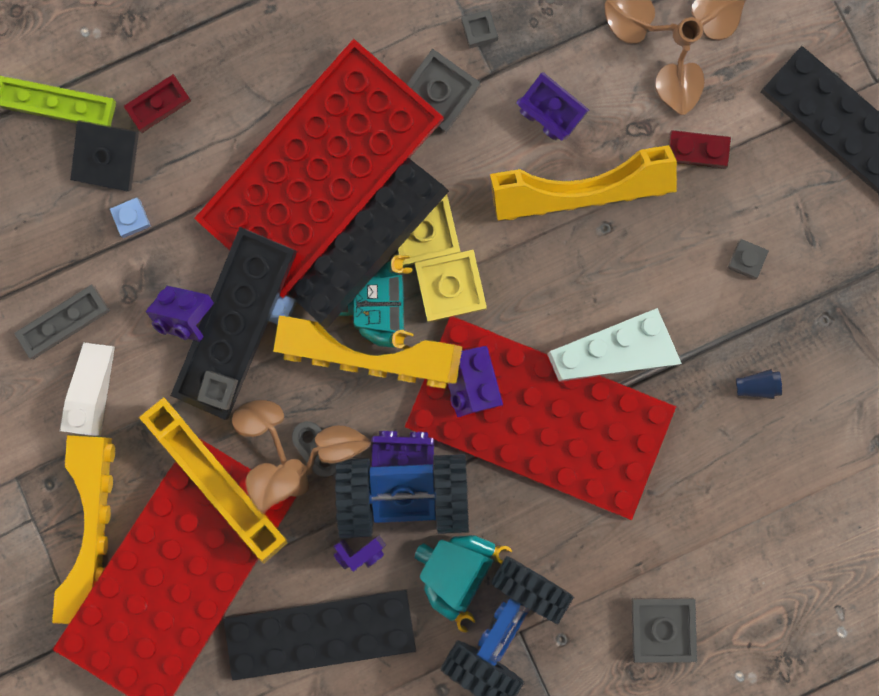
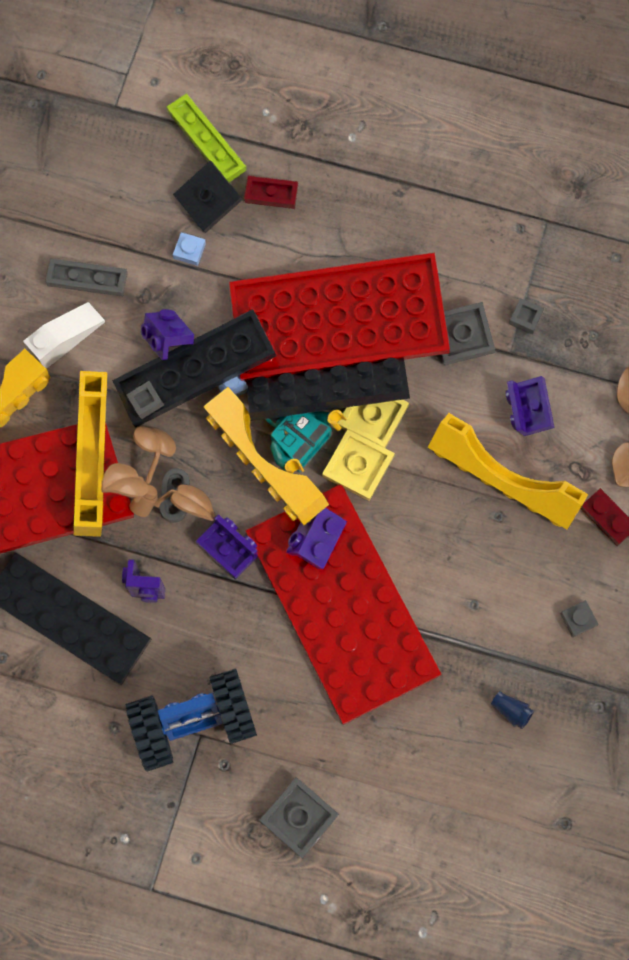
camera: 35 degrees right, 10 degrees down
(401, 495) = (203, 569): plate -> none
(455, 573) = (192, 653): teal torso -> none
(622, 348) = (438, 602): light aqua wing -> none

